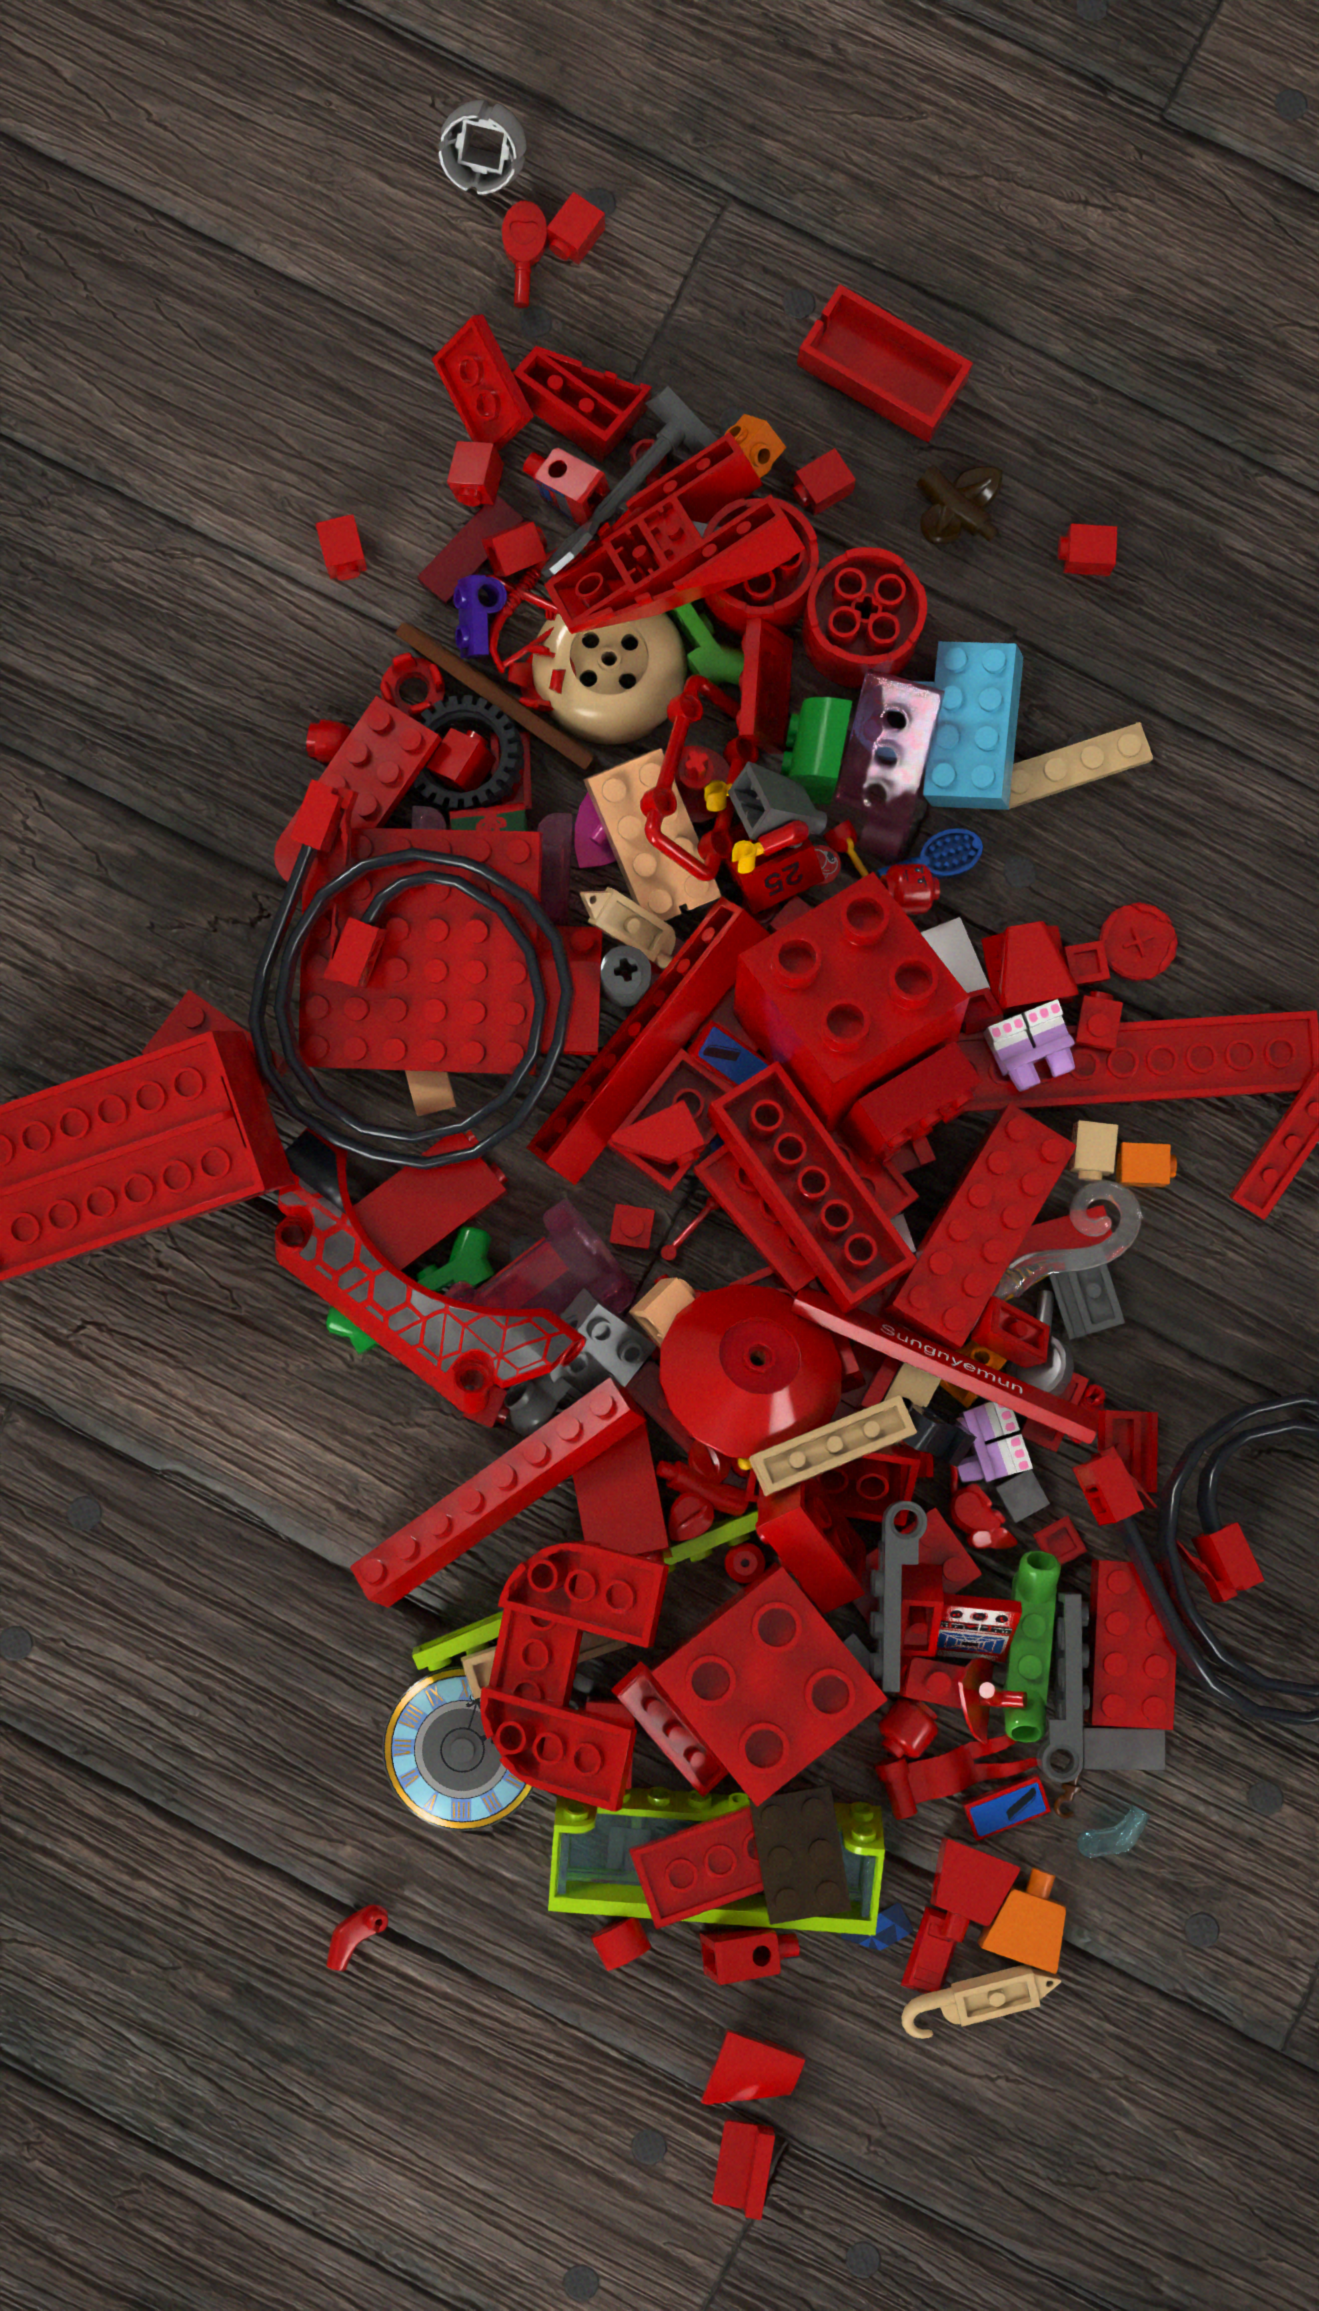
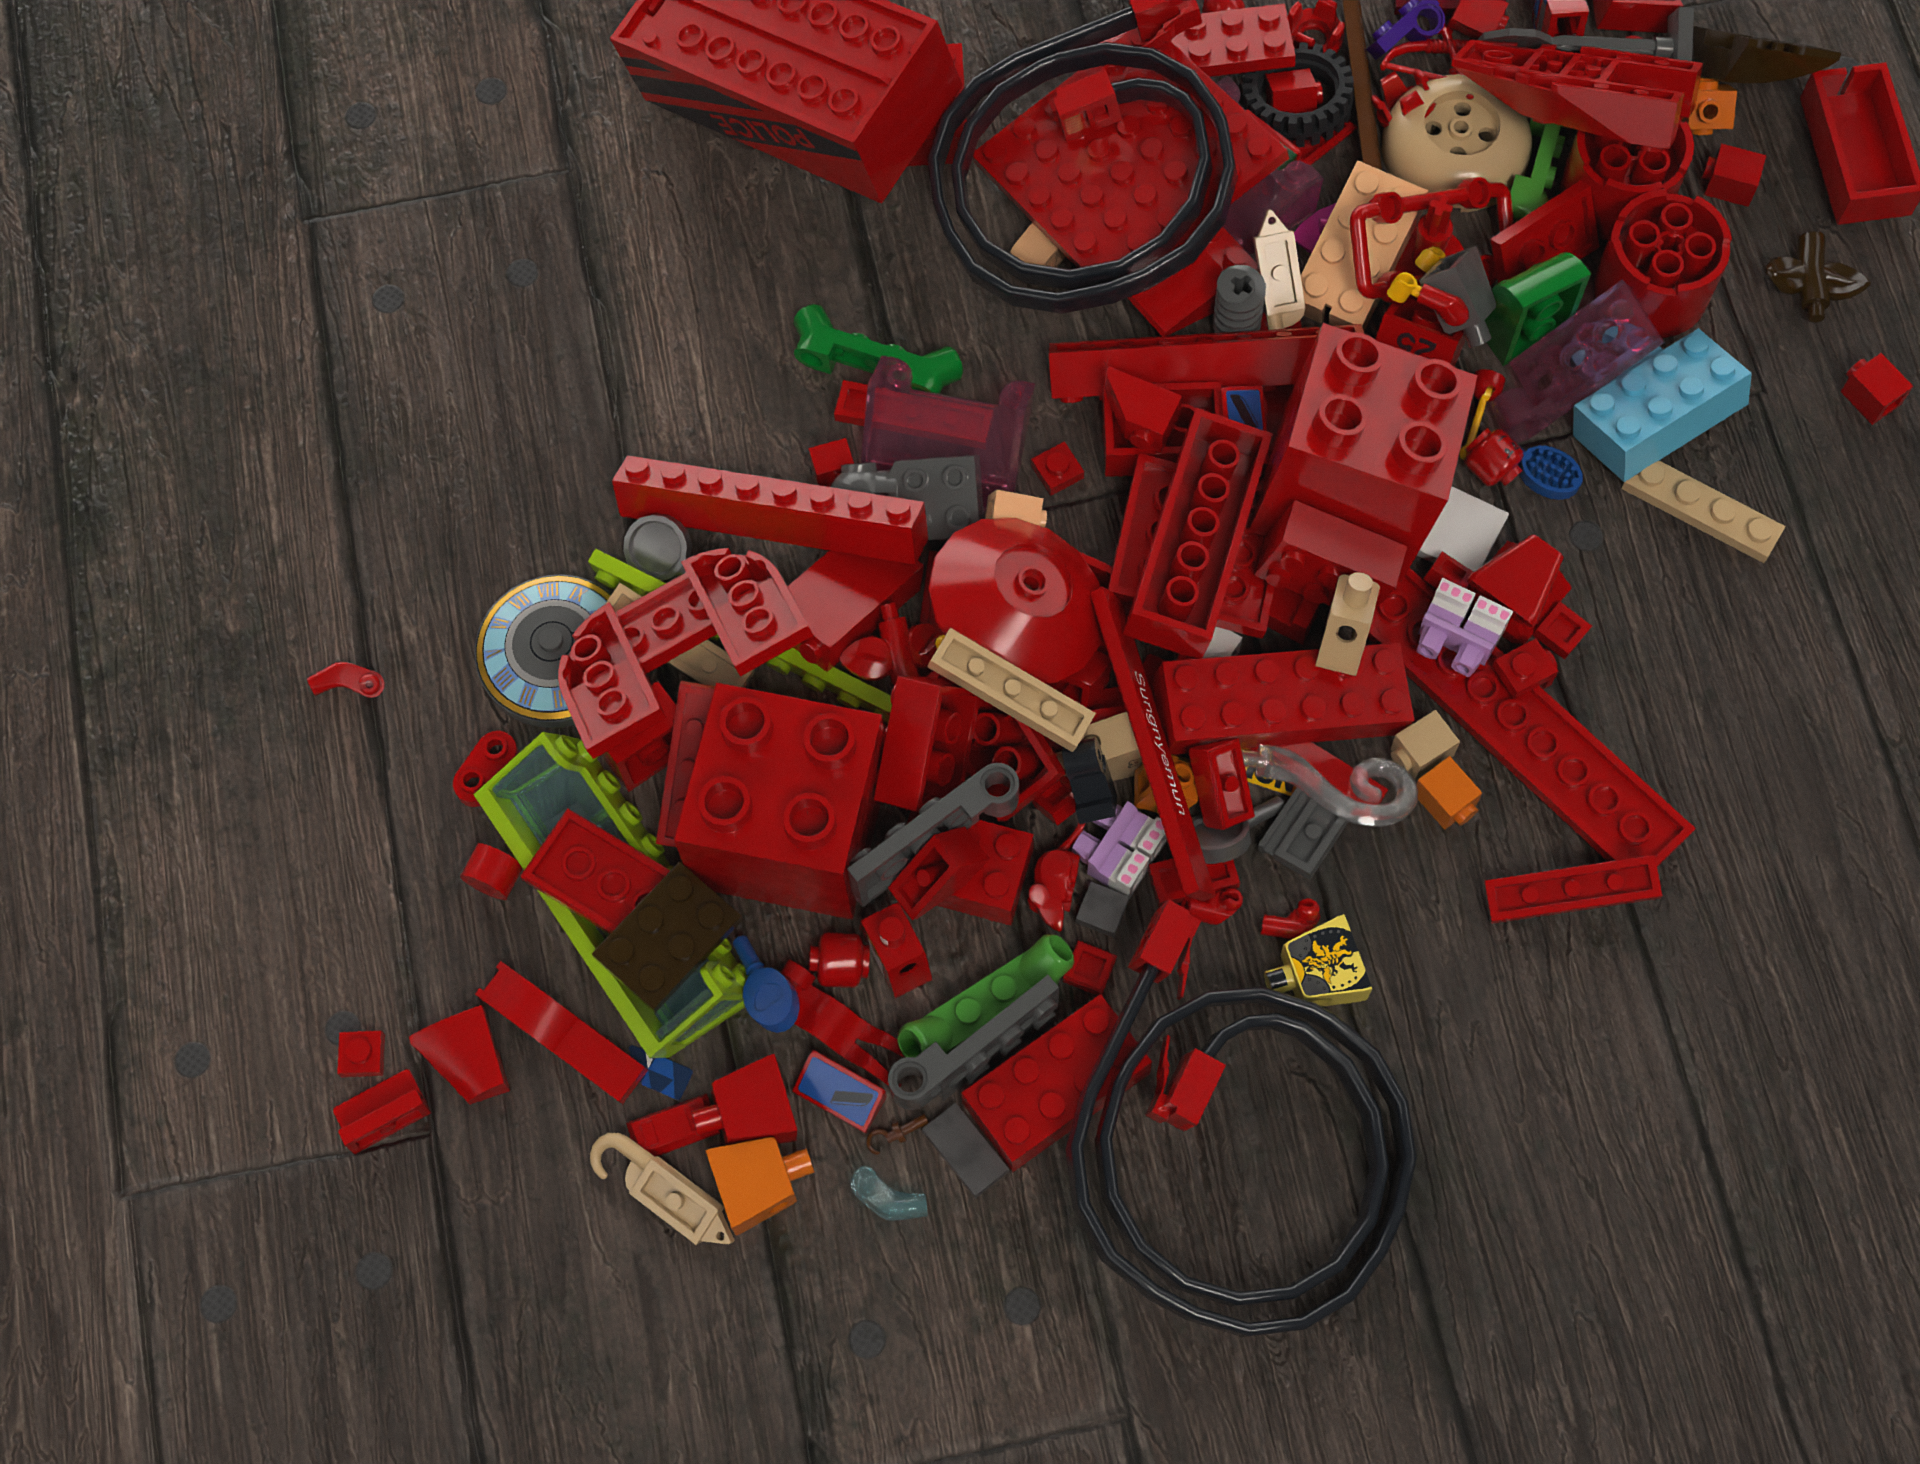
camera: 60 degrees right, 15 degrees down
(426, 1207) = (940, 308): red brick -> none
(428, 1332) = (852, 368): panel -> none
(449, 1600) = (657, 546): none -> flat silver piece
(522, 1879) = (483, 765): none -> red plate
(669, 1252) = (1062, 510): red hinge -> none
(684, 2149) = (361, 1054): none -> red plate
(730, 1958) = (546, 956): red torso -> none
(747, 373) = (1754, 59): none -> dark brown wedge
(799, 1981) = (562, 1033): none -> red piece
(896, 1806) = (766, 993): none -> blue piece
(976, 1133) = (1353, 607): none -> tan torso
(977, 1627) = (962, 940): tile -> none
(979, 1694) = (911, 985): red shield -> none
(1135, 1440) = (1217, 957): red plate -> none
(1138, 942) = (1616, 659): red tile -> none
(1149, 1363) = (1295, 924): none -> red arm
(1199, 1375) = (1322, 966): none -> torso

